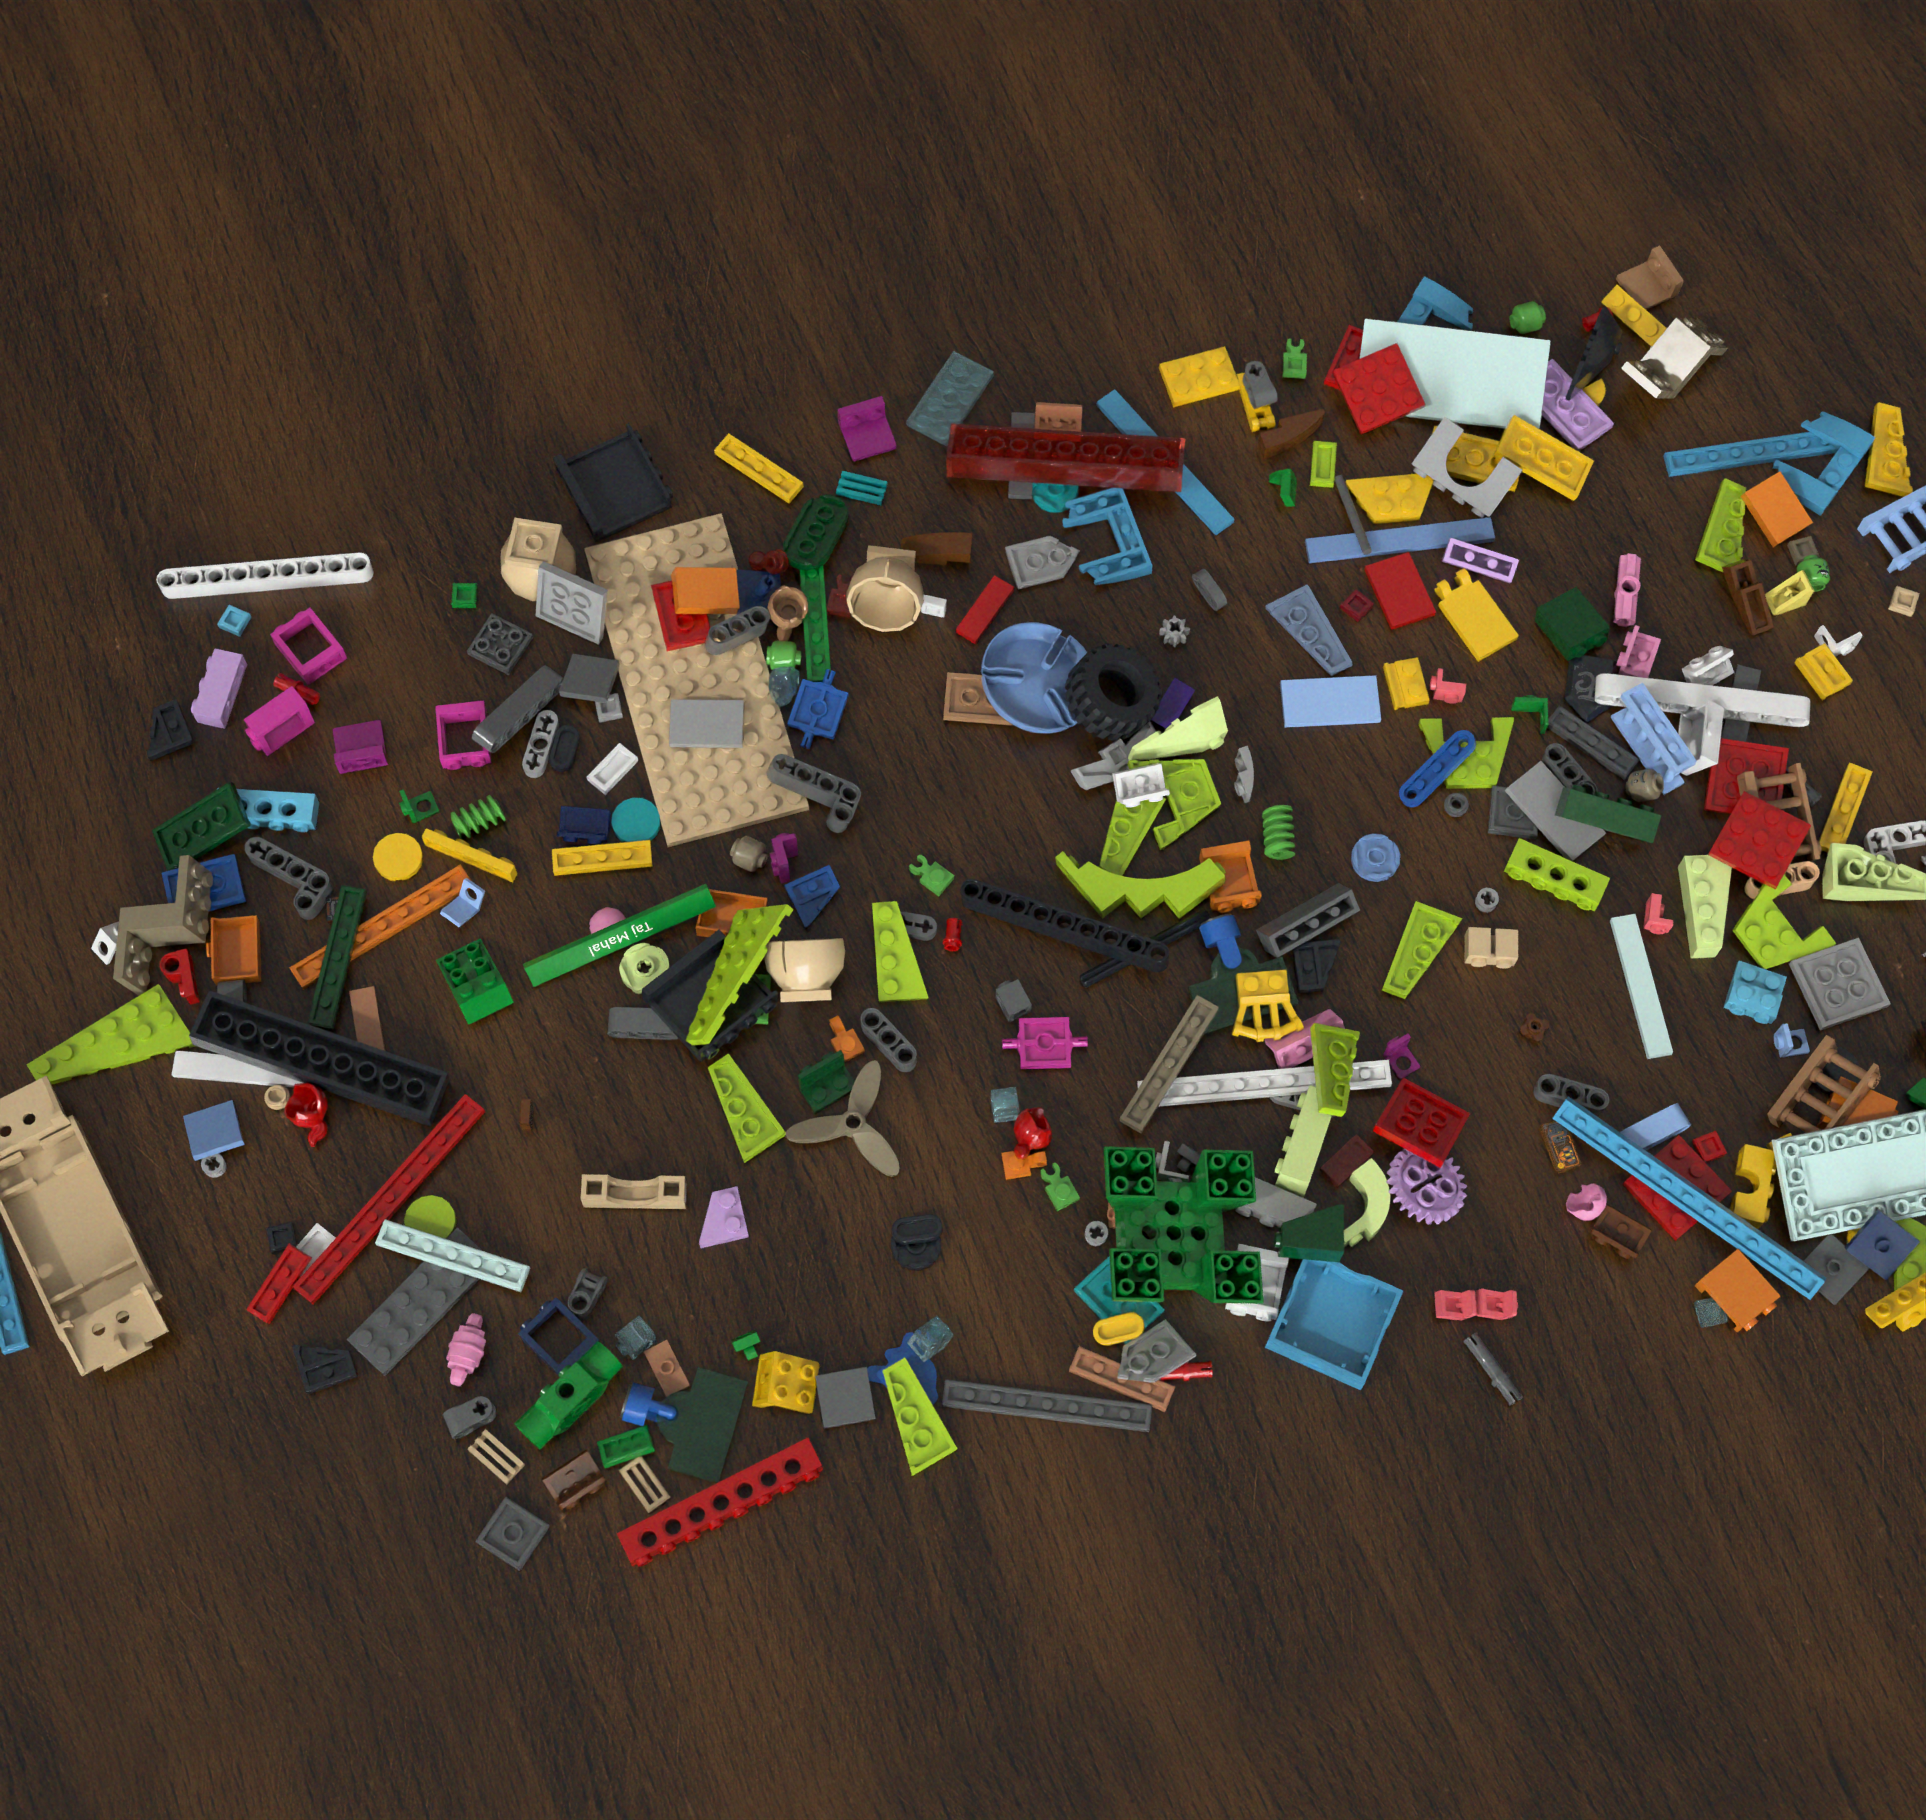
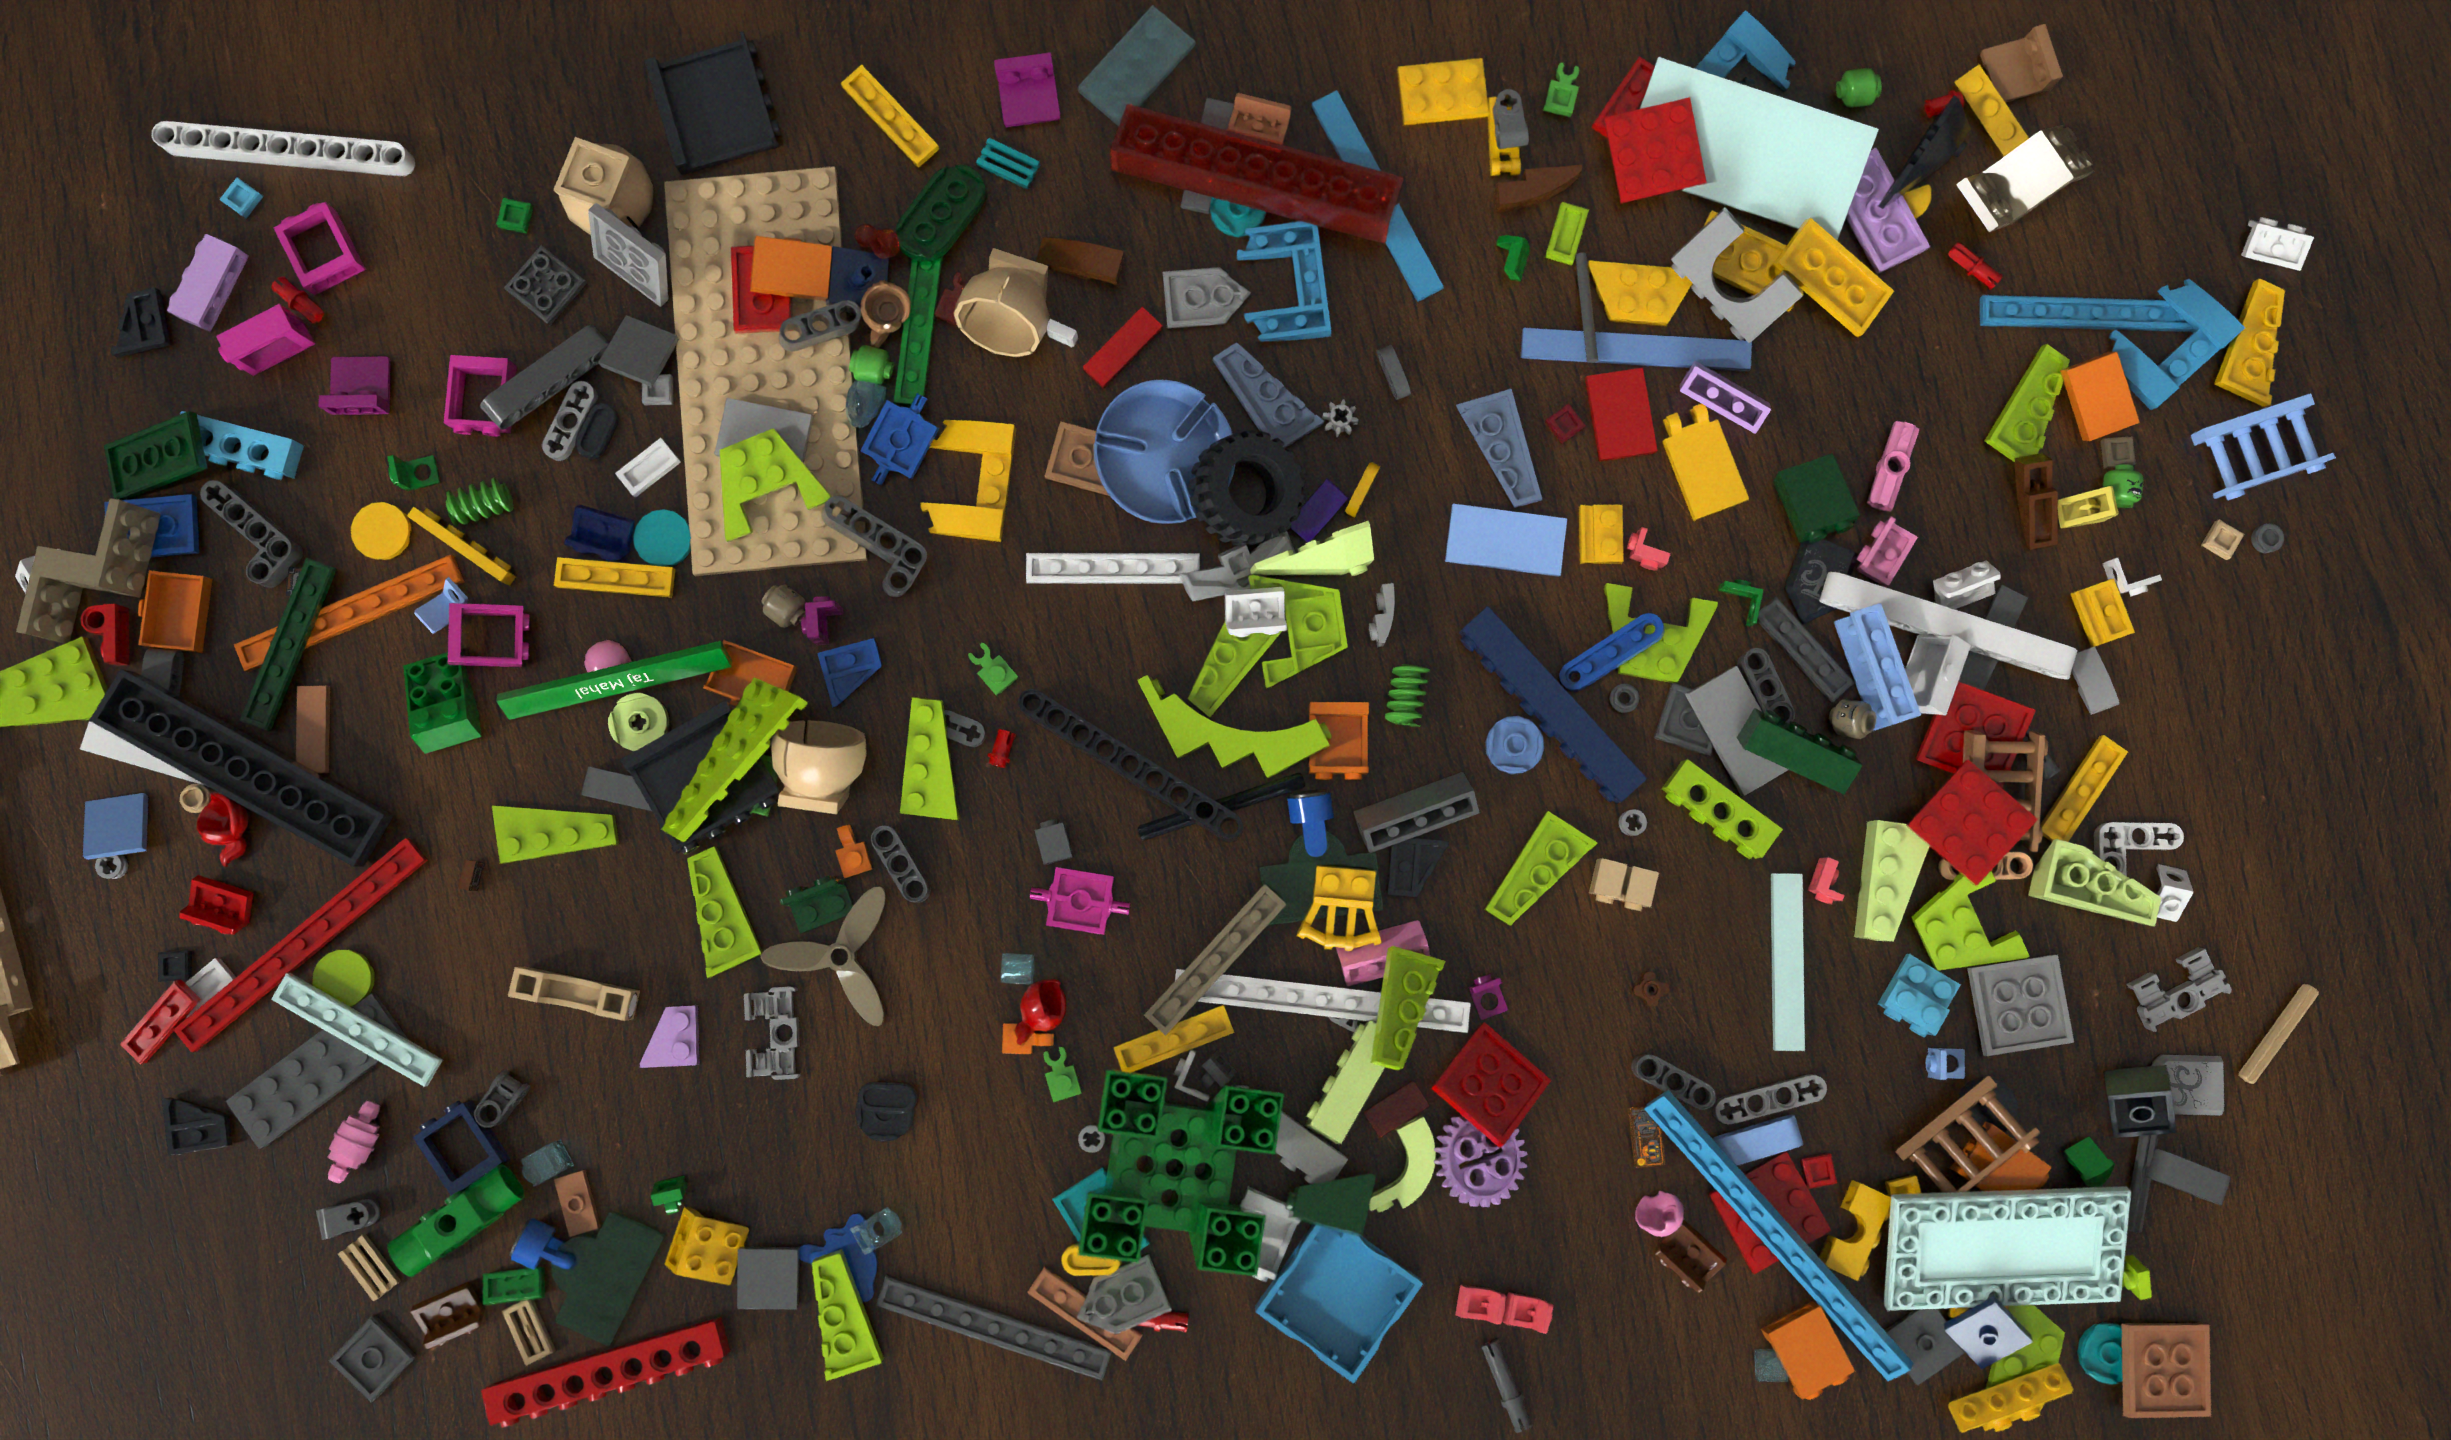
camera: 10 degrees right, 15 degrees up
(313, 1177) = (217, 905): none -> red bracket
(481, 901) = (456, 611): none -> dark pink window
(582, 1071) = (543, 833): none -> lime wing
(710, 747) = (759, 468): none -> lime wing
(810, 1176) = (783, 1058): none -> light grey piece
(901, 758) = (986, 518): none -> yellow wedge
(1010, 779) = (1110, 567): none -> white tile
(1108, 625) = (1265, 397): none -> sand blue wing
(1162, 1129) = (1181, 1038): none -> yellow plate
(1205, 681) = (1362, 489): none -> yellow tile
(1399, 819) = (1552, 705): none -> dark blue brick
(1652, 431) = (1974, 265): none -> red axle
(1652, 1093) = (1770, 1102): none -> light grey beam
(1830, 723) = (2093, 681): none -> light grey slope
(1885, 376) = (2277, 244): none -> white bracket

